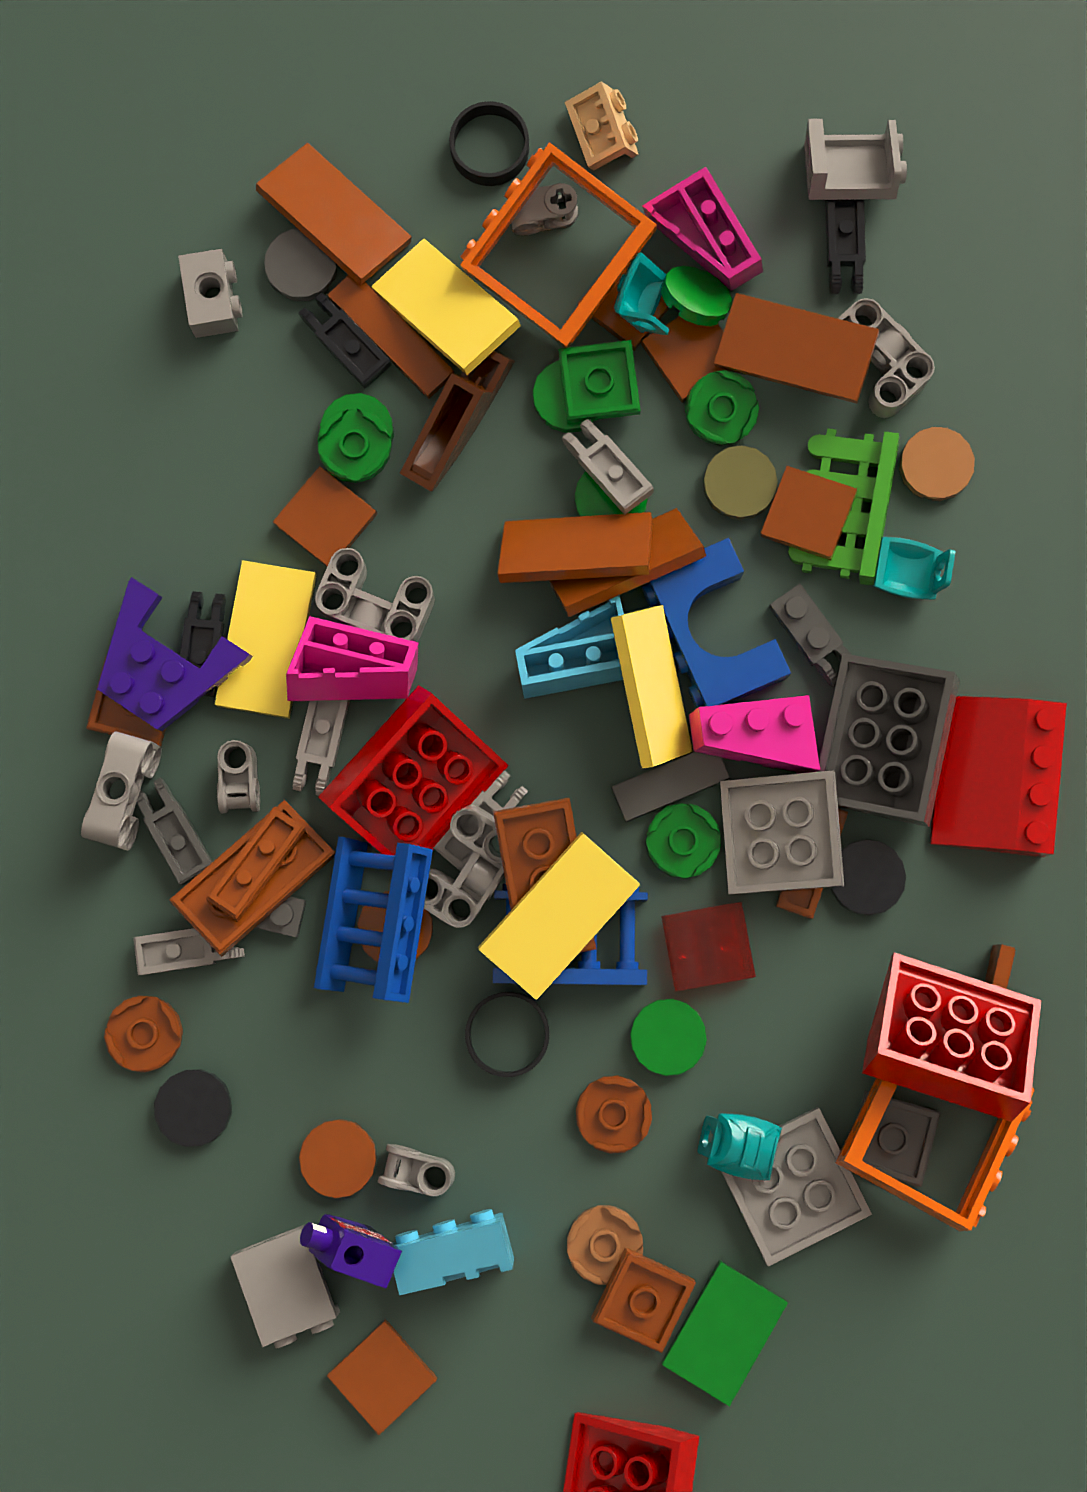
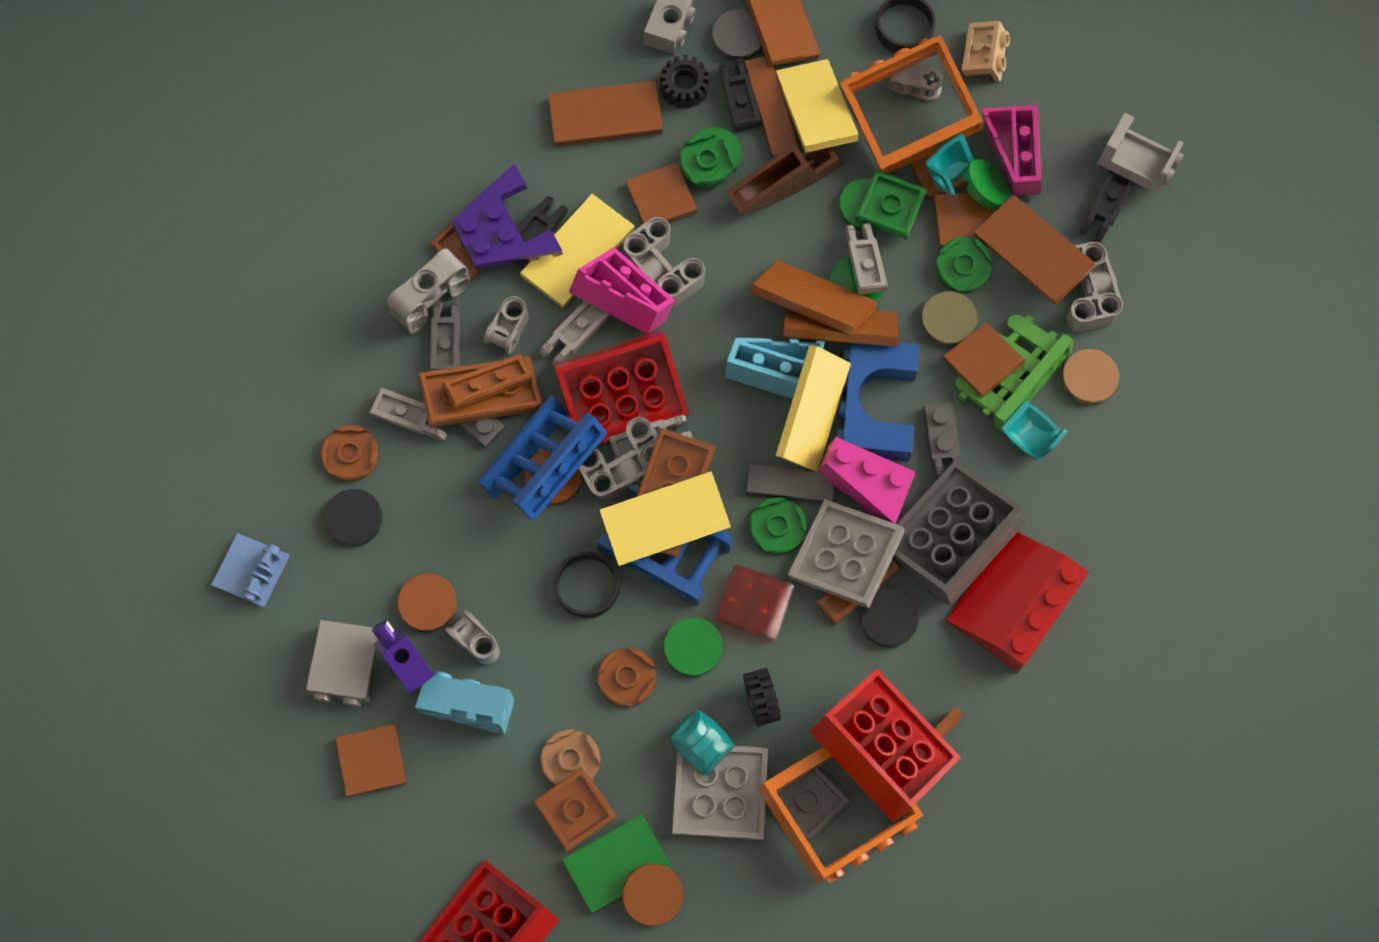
camera: 25 degrees right, 10 degrees down
(111, 1237) = (250, 570): none -> medium blue hinge
(199, 450) = (605, 113): none -> dark orange tile
(265, 339) = (689, 68): none -> black tyre
(781, 1056) = (761, 697): none -> black tyre
(784, 1346) = (652, 894): none -> dark orange tile

